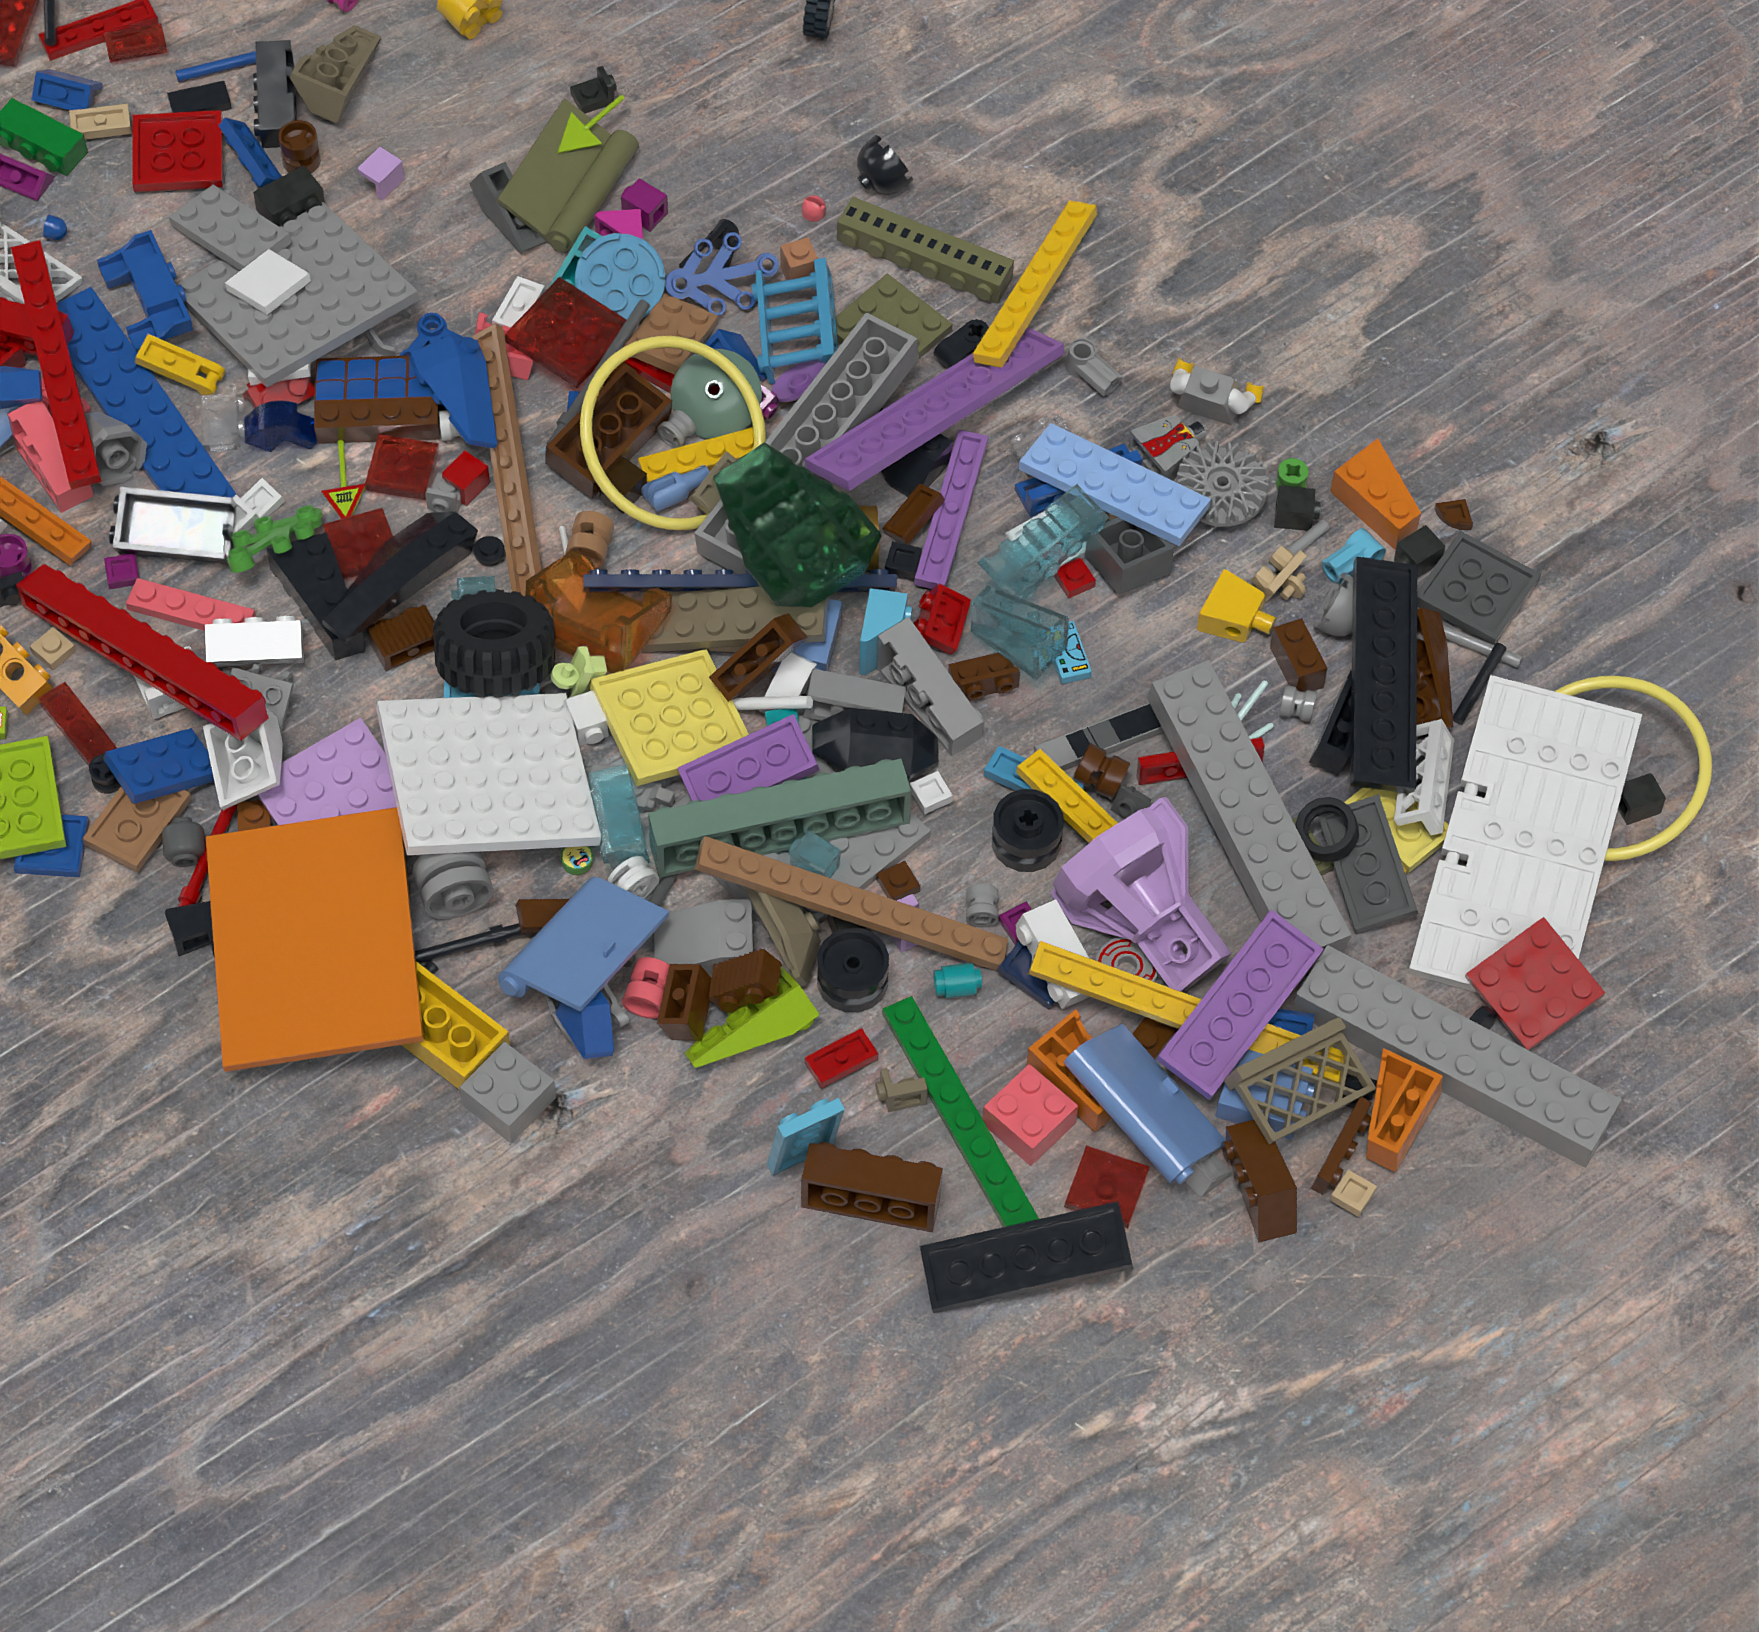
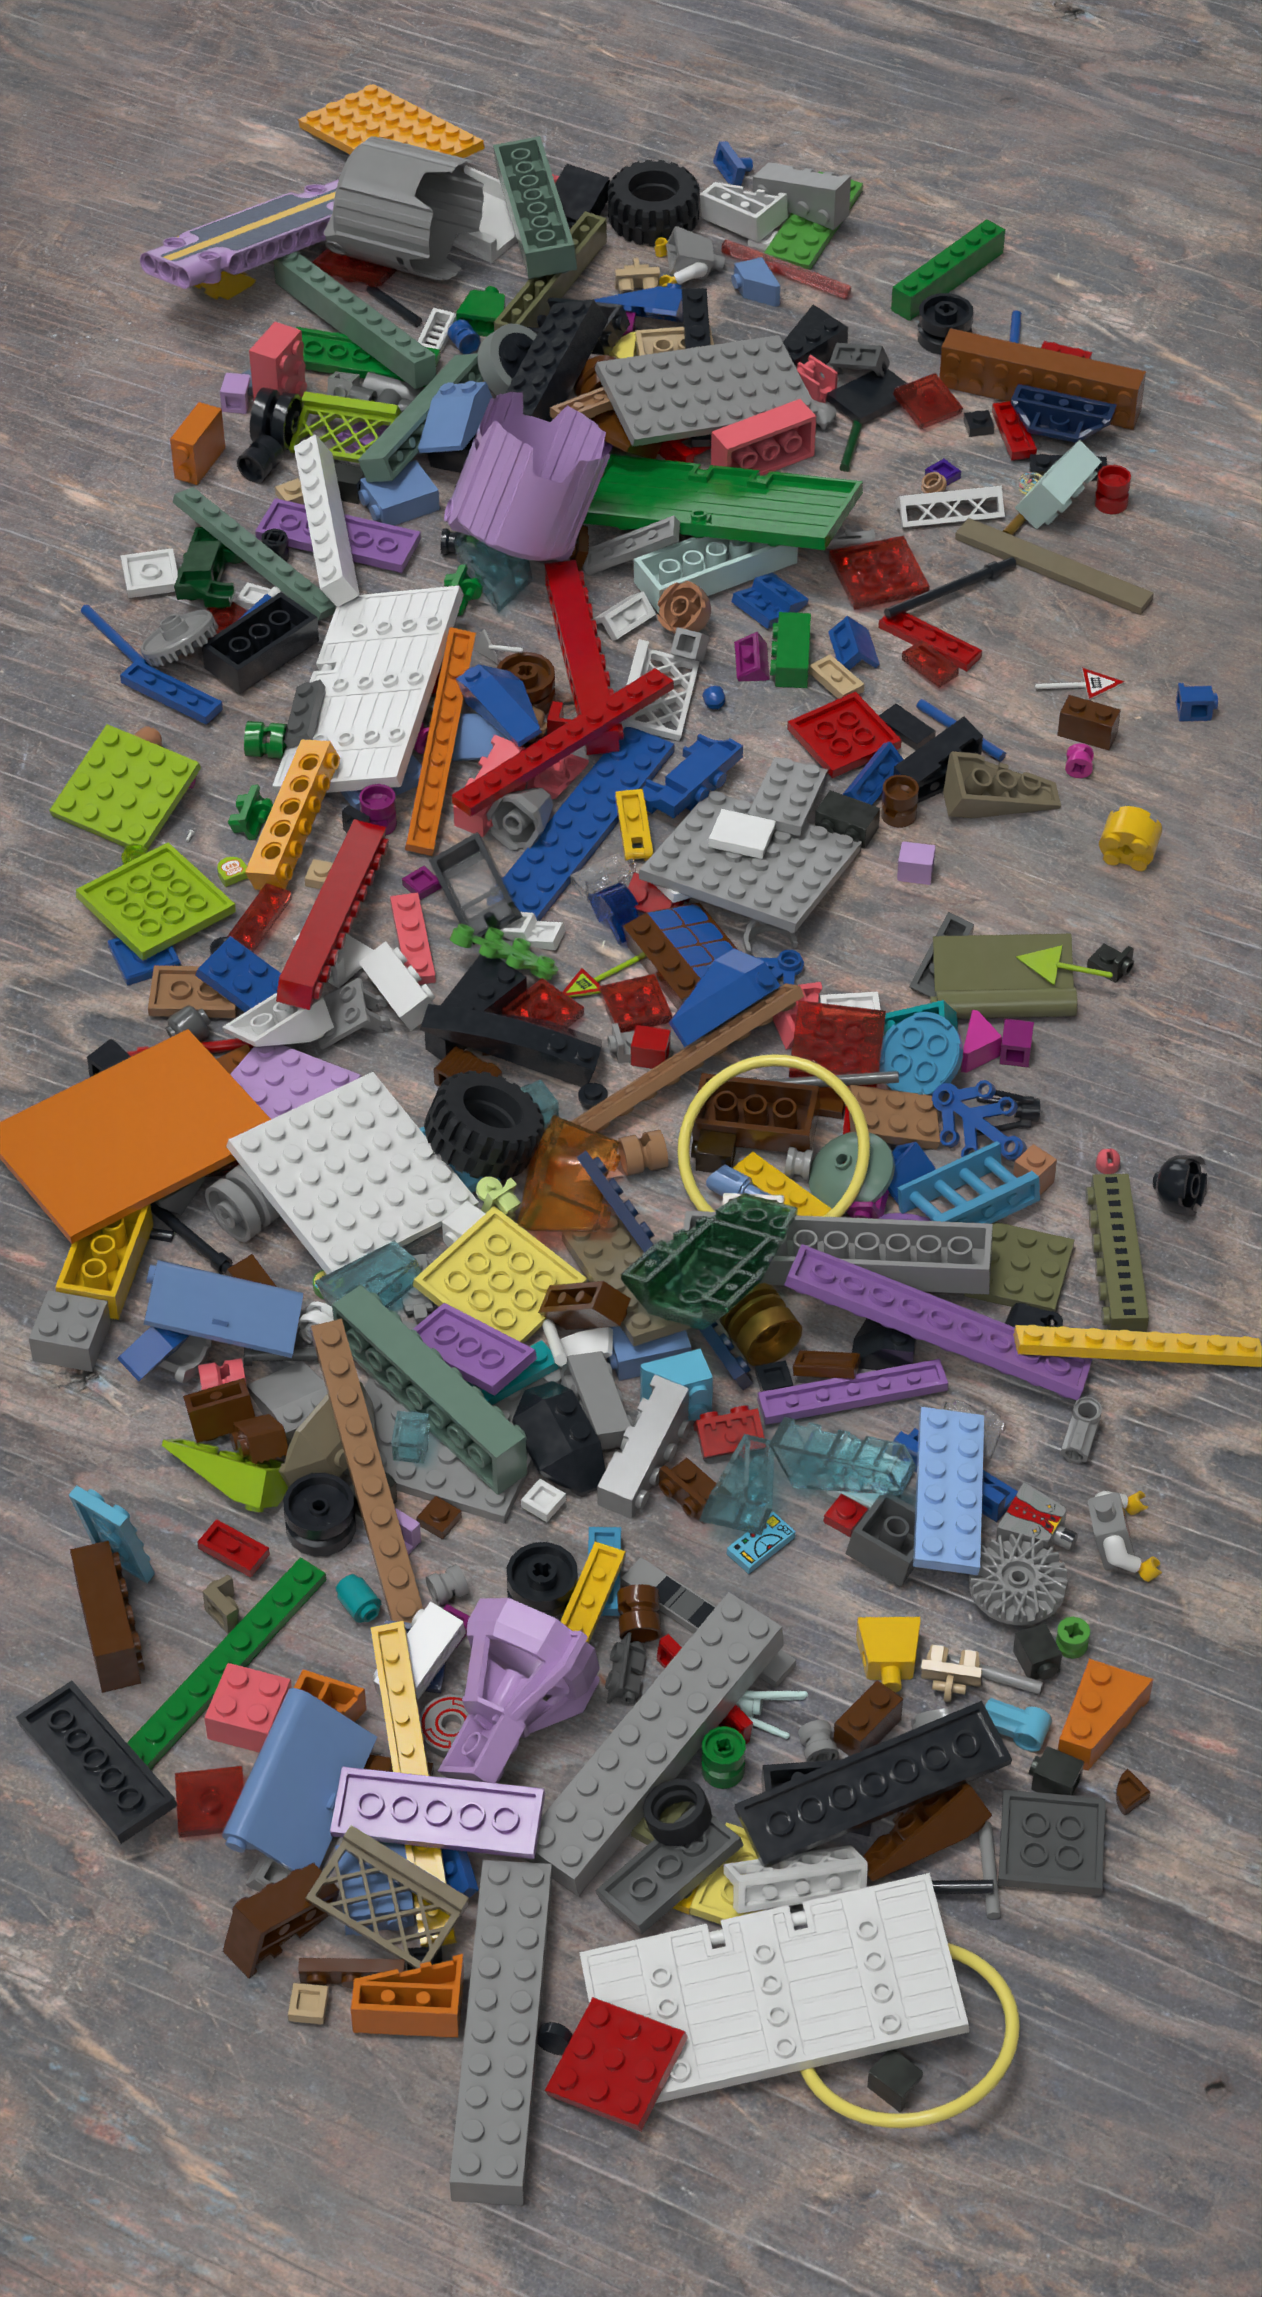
camera: 65 degrees right, 10 degrees down
(1284, 770) = (723, 1757): none -> green wheel

